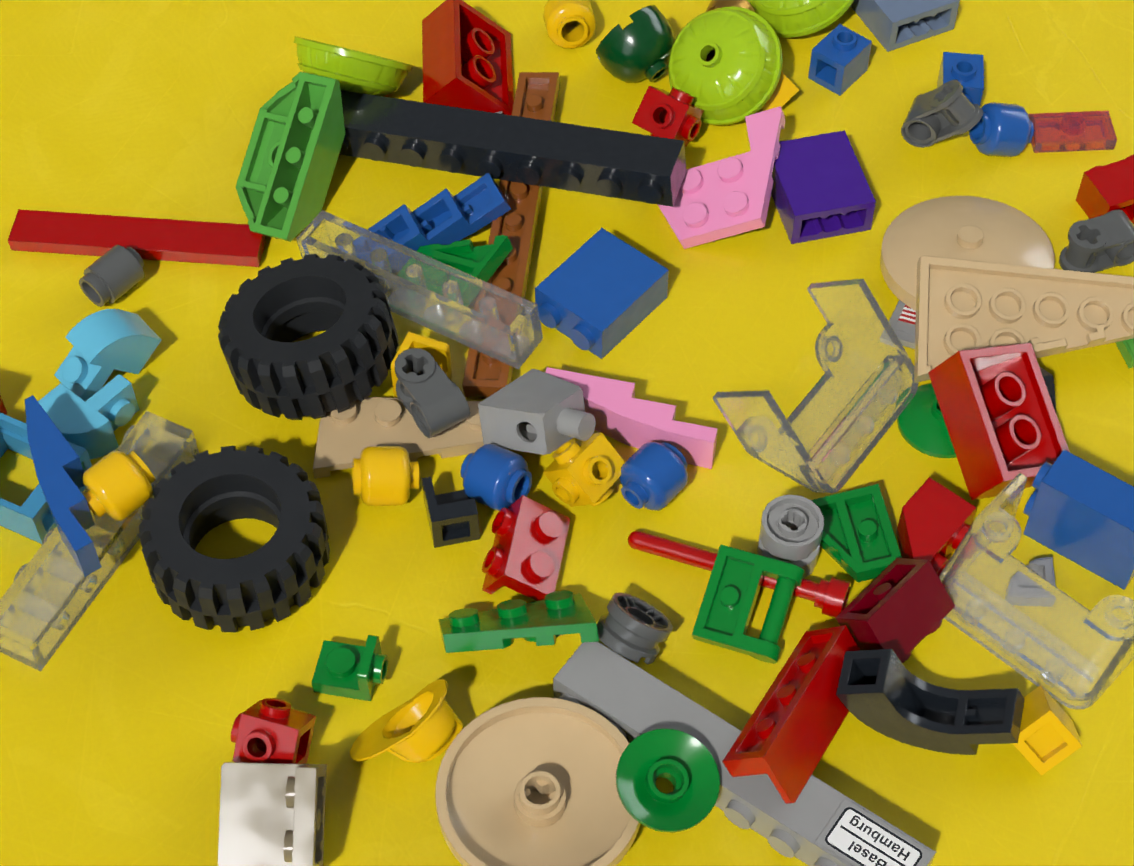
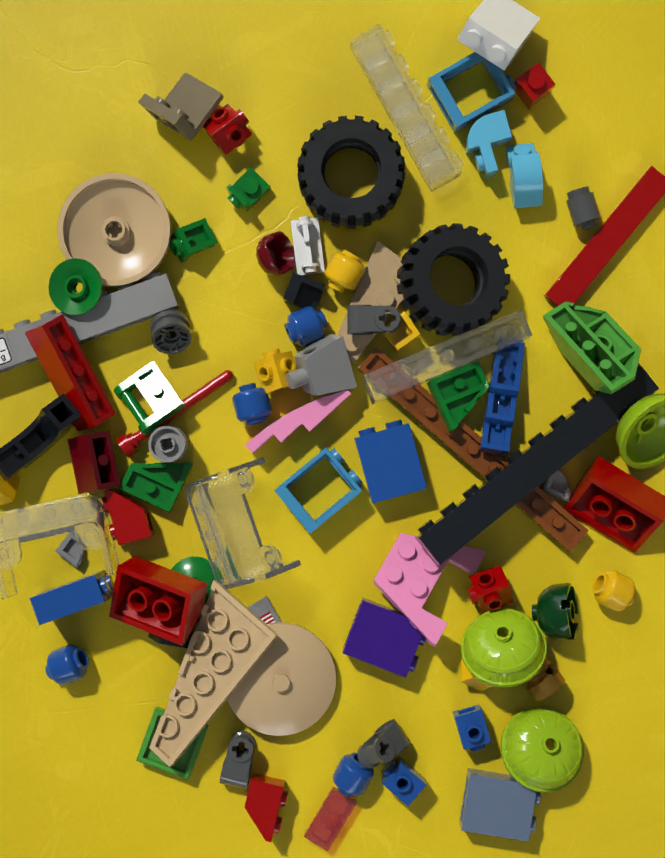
camera: 130 degrees right, 35 degrees up
(60, 480) = (443, 99): blue slope -> none
(118, 485) = (410, 124): yellow head -> none
(381, 546) = (307, 246): none -> white hinge
(413, 730) = (193, 193): yellow piece -> none
(423, 572) = (275, 254): none -> dark red hair
(478, 686) = (192, 239): none -> green bracket
(526, 549) = (255, 314): bracket -> none
(534, 621) = (210, 284): green wing -> none
(703, 316) = (299, 510): none -> dark azure window

